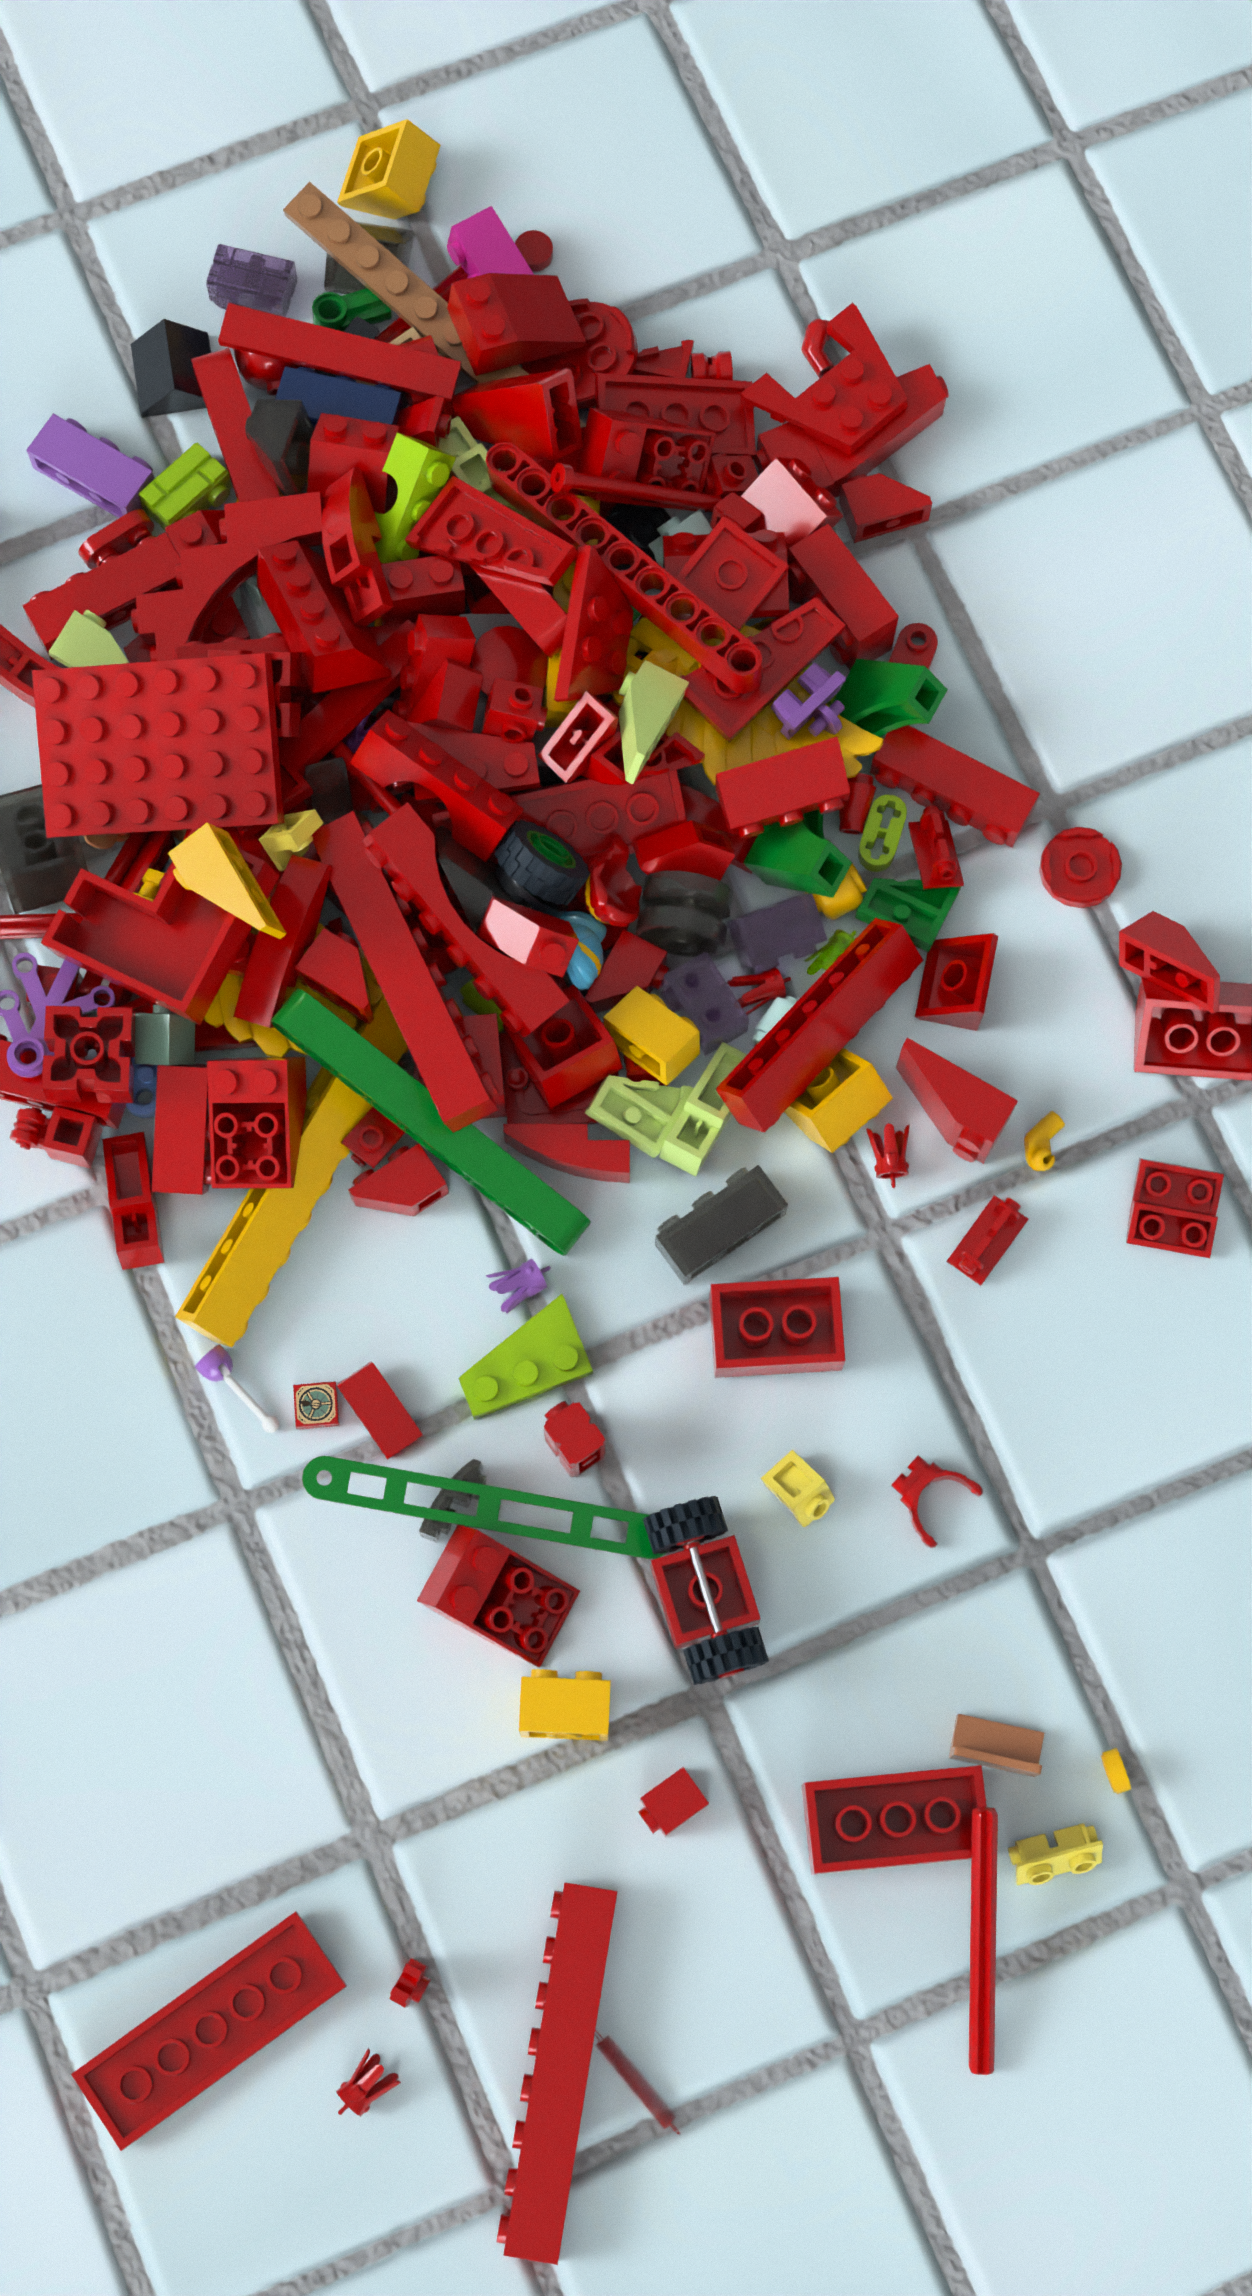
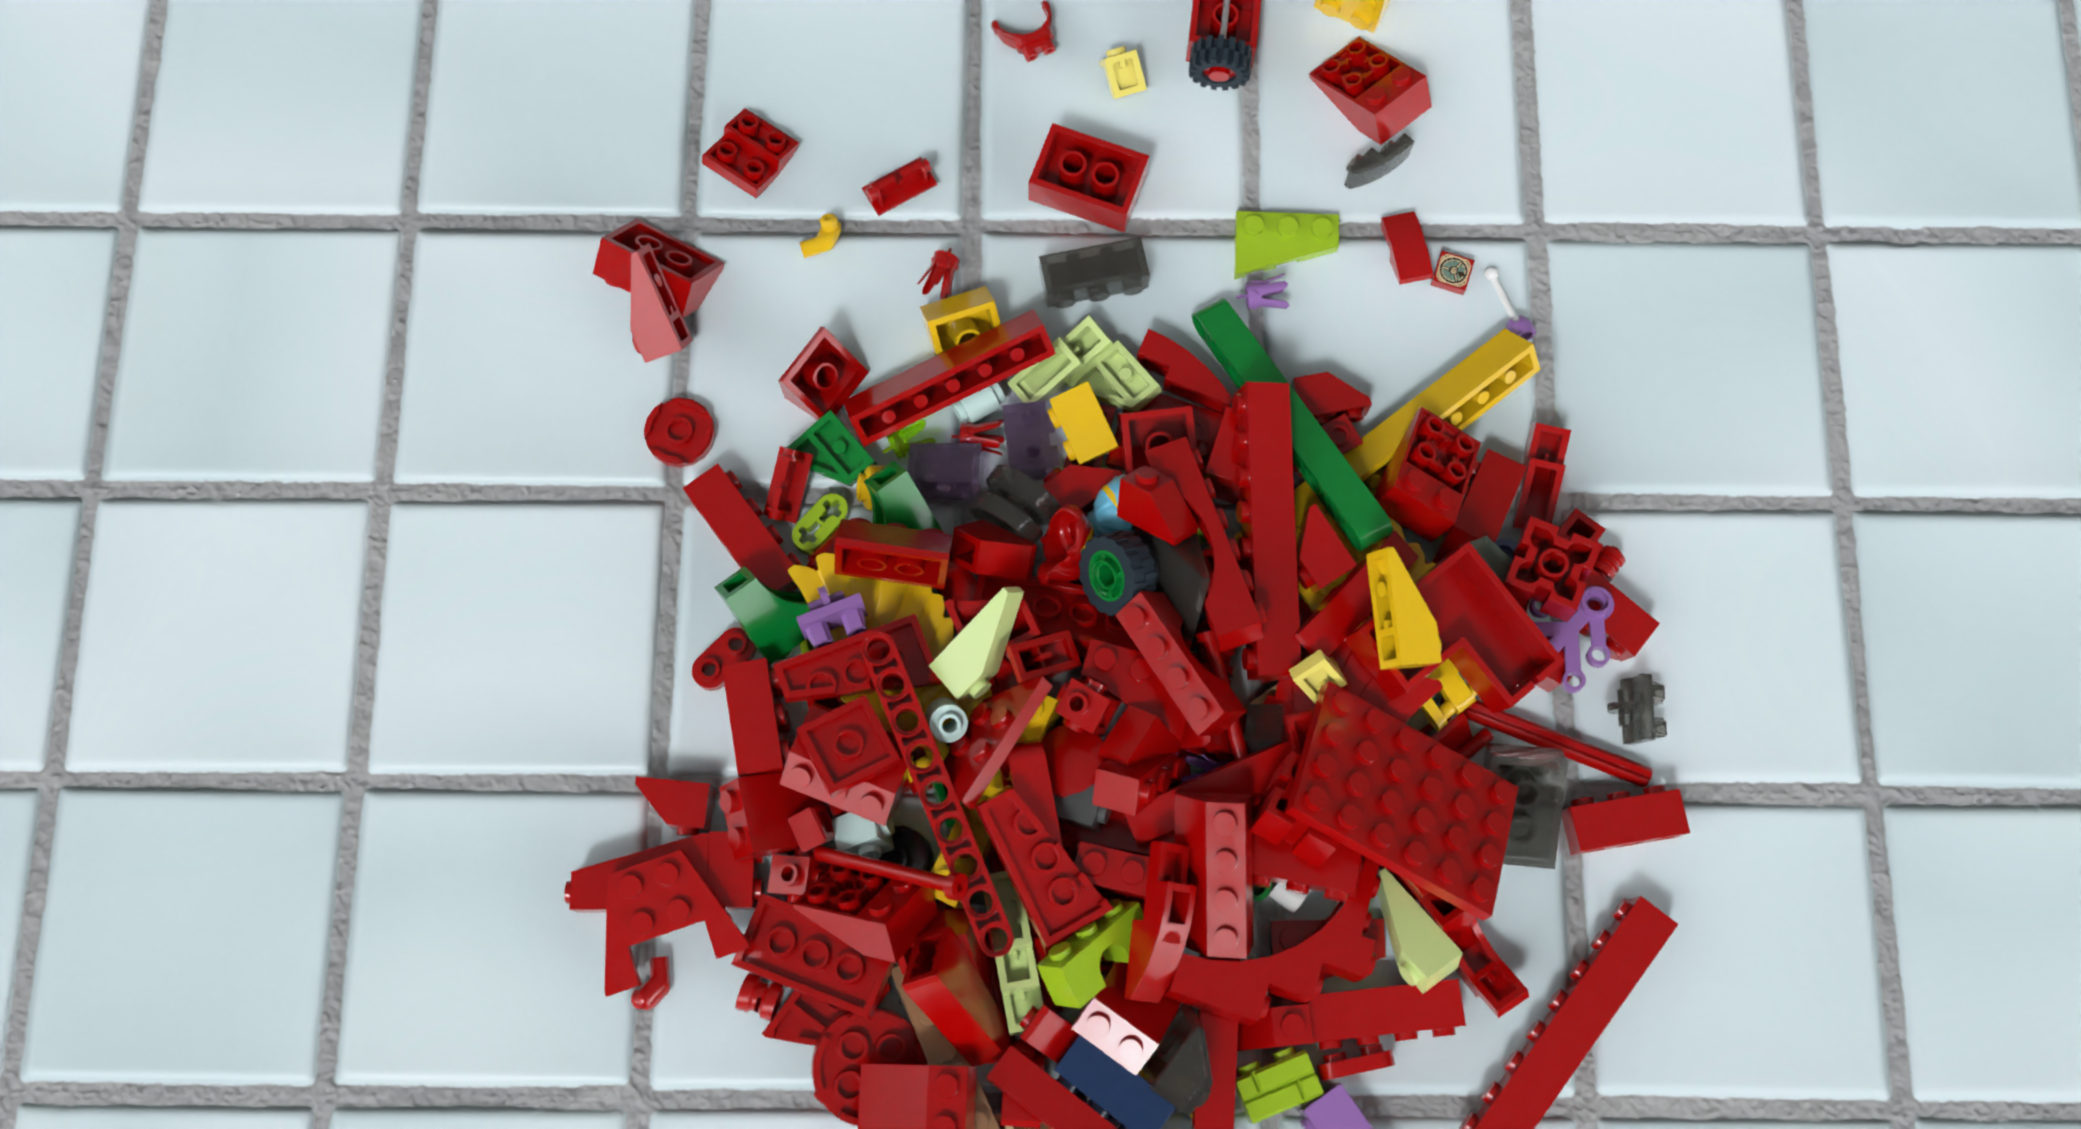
camera: 155 degrees left, 0 degrees up
(488, 1508) = (1357, 136): green piece -> none
(573, 1438) = (1274, 156): red brick -> none
(647, 641) = (939, 711): none -> light aqua brick
(960, 1105) = (866, 264): red slope -> none

